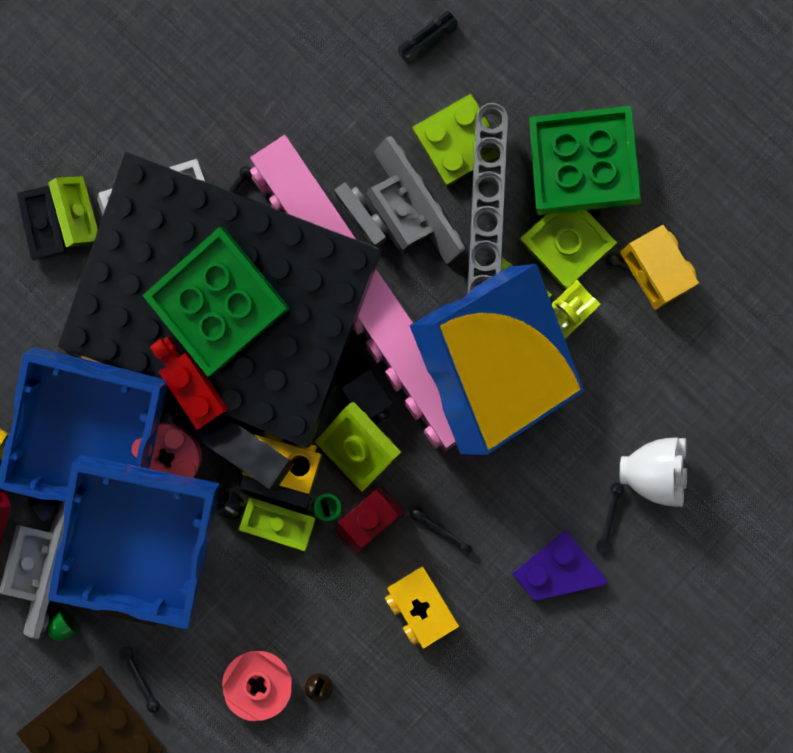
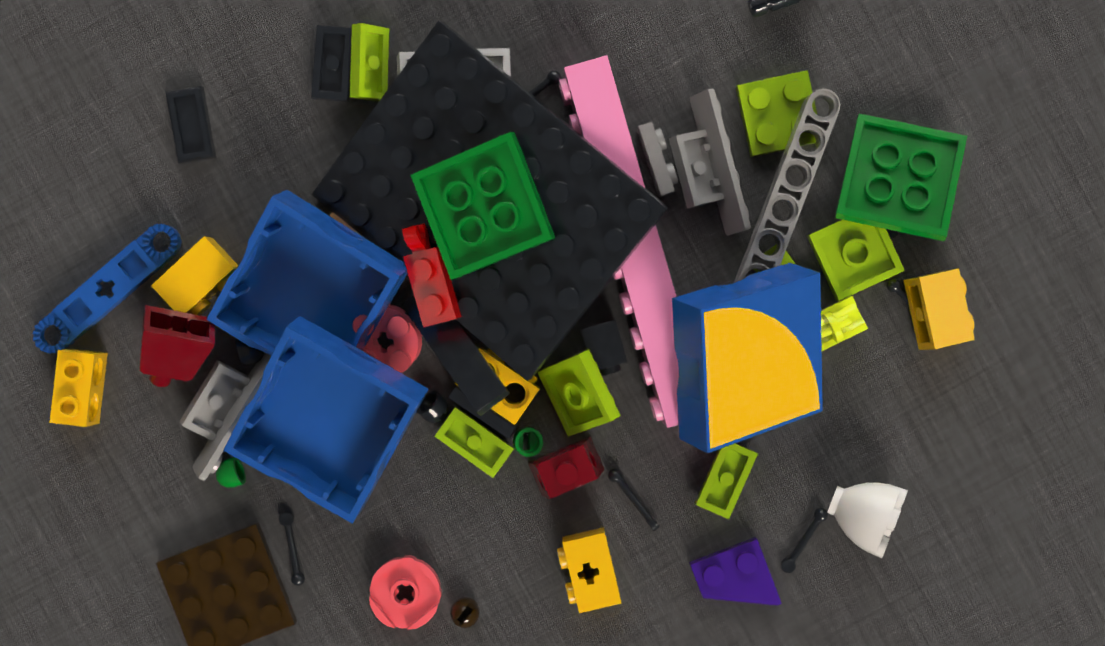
camera: 15 degrees right, 5 degrees up
(519, 483) = (726, 479): none -> lime plate

